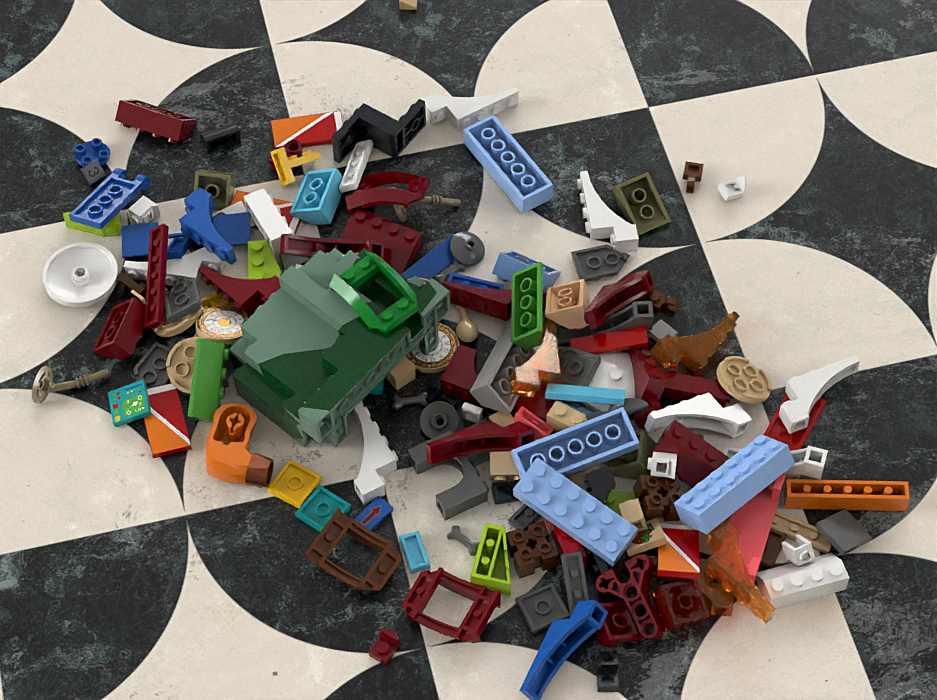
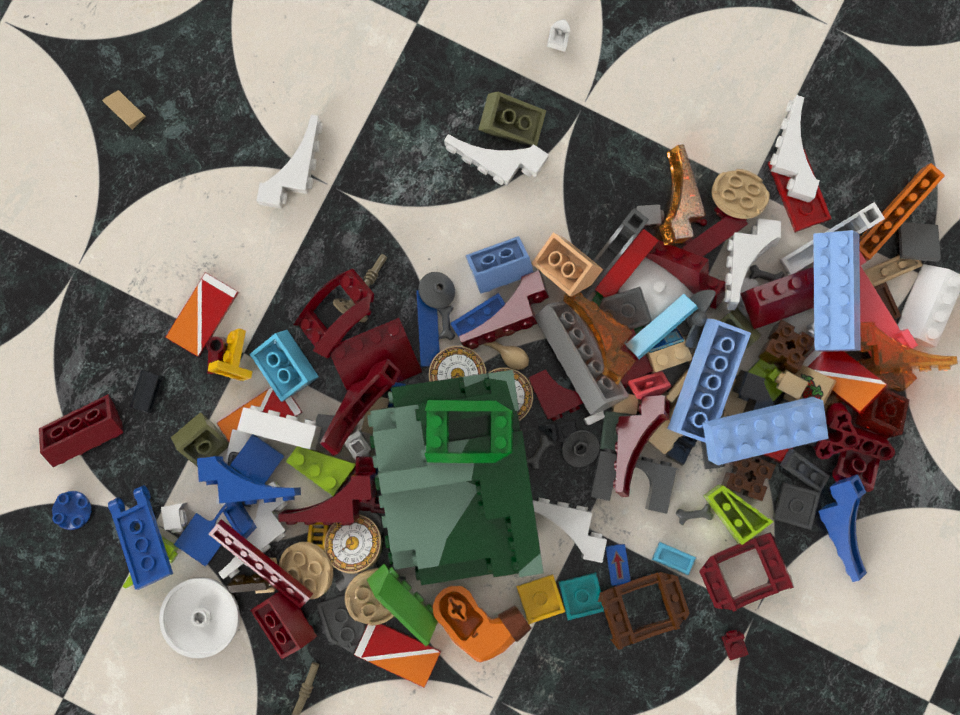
camera: 55 degrees left, 30 degrees up
(93, 172) = (93, 525): dark grey tile -> none
(129, 403) = (361, 670): teal tile -> none
(182, 299) = (300, 560): dark grey tile -> none
(356, 166) = (279, 310): white tile -> none
(384, 131) = (259, 263): black bracket -> none
(508, 164) = (383, 188): light blue brick -> none
(527, 307) = (555, 305): bright green slope -> none
(598, 262) = (536, 200): dark grey tile -> none
(608, 674) = (886, 506): black slope -> none
(617, 295) = (588, 222): dark red arch -> none
(660, 301) = (609, 189): reddish brown plate -> none
(662, 464) = (774, 326): white window -> none
(692, 173) = (516, 52): reddish brown plate -> none
(801, 554) = (913, 290): white window -> none

